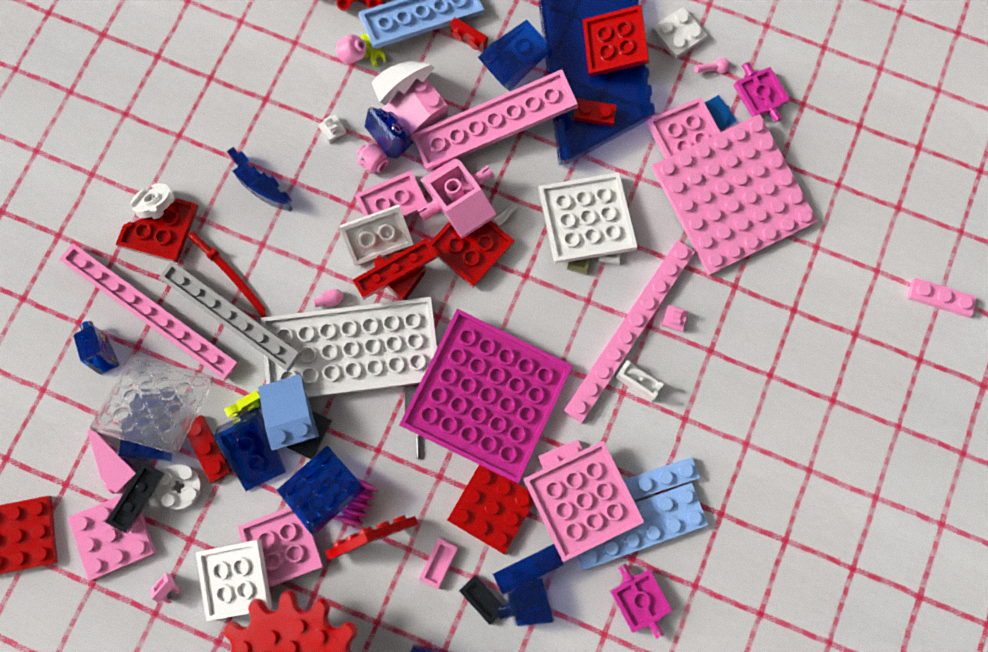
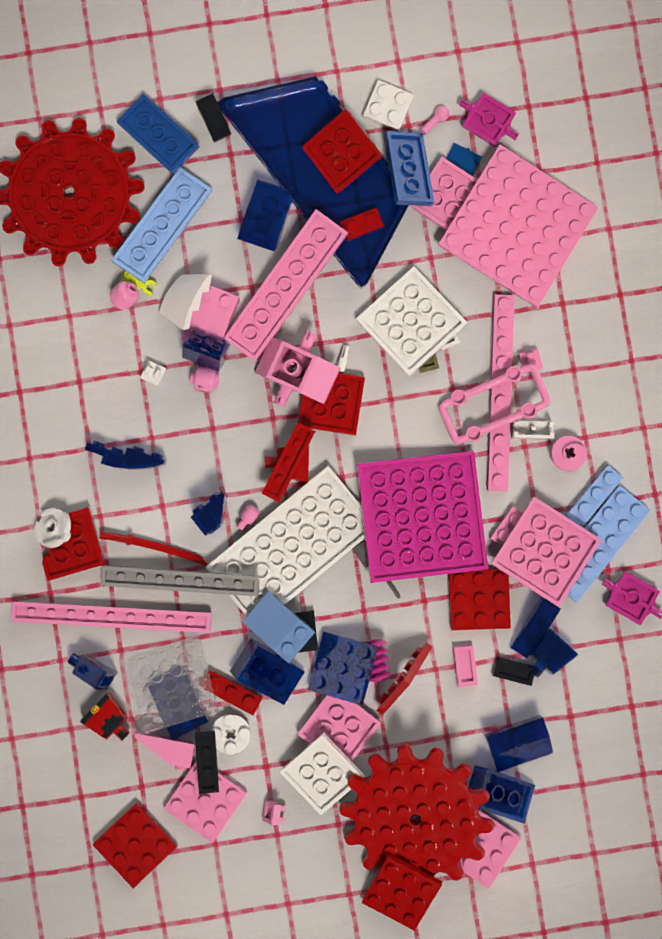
camera: 30 degrees left, 10 degrees up
(78, 398) = (106, 718): none -> torso
(246, 403) = (242, 637): neon yellow plate -> none
(297, 274) = (211, 515): none -> clear blue slope
(376, 235) = (252, 442): white plate -> none
(400, 190) = (244, 405): bright pink plate -> none
(473, 37) = (206, 220): red plate -> none
(646, 357) = (528, 410): none -> bright pink bar
(650, 417) = (578, 451): none -> bright pink piece
(665, 88) = (409, 168): none -> blue plate

